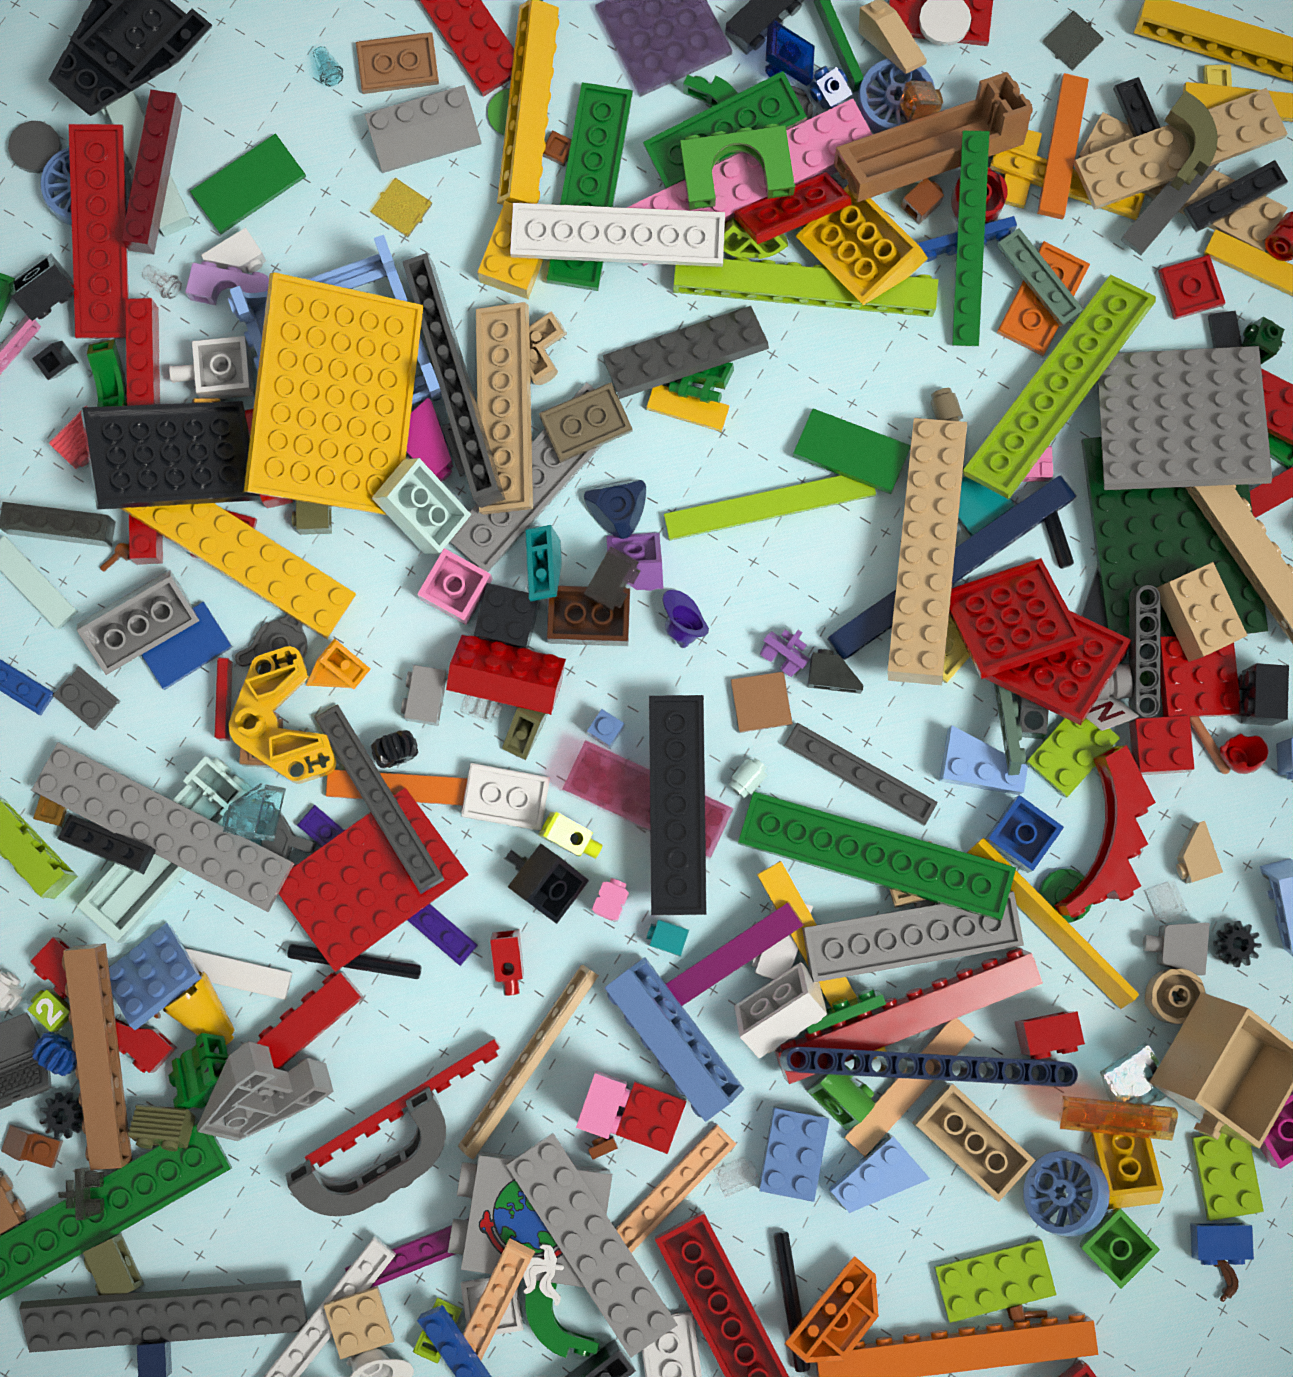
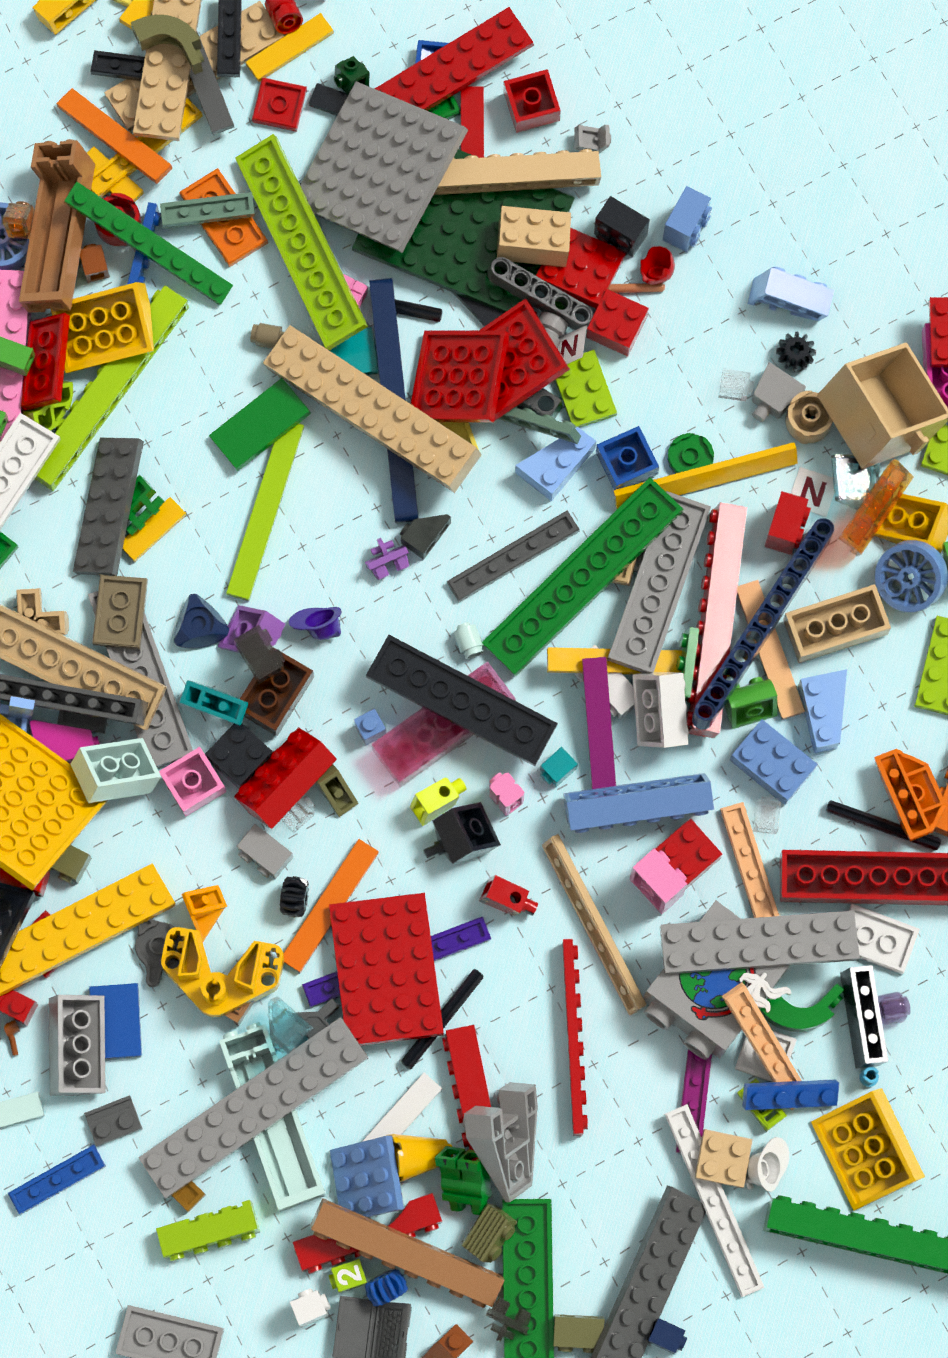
camera: 60 degrees left, 5 degrees down
(56, 1122) = (437, 1301): black gear -> none
(106, 844) = (242, 1160): black plate -> none
(223, 699) = (177, 1011): red tile -> none
(379, 799) = (328, 927): dark grey tile -> none
(383, 1179) = (622, 1078): dark grey arch -> none
(505, 797) = (379, 833): white tile -> none
(602, 1146) = (689, 903): dark orange plate -> none
(761, 702) = (415, 599): medium nougat tile -> none
(1073, 40) = (33, 82): clear smoke piece -> none
(1102, 1041) = (816, 488): none -> white sticker
(1122, 837) = (643, 370): red arch -> none
(1198, 855) = (714, 342): tan slope -> none

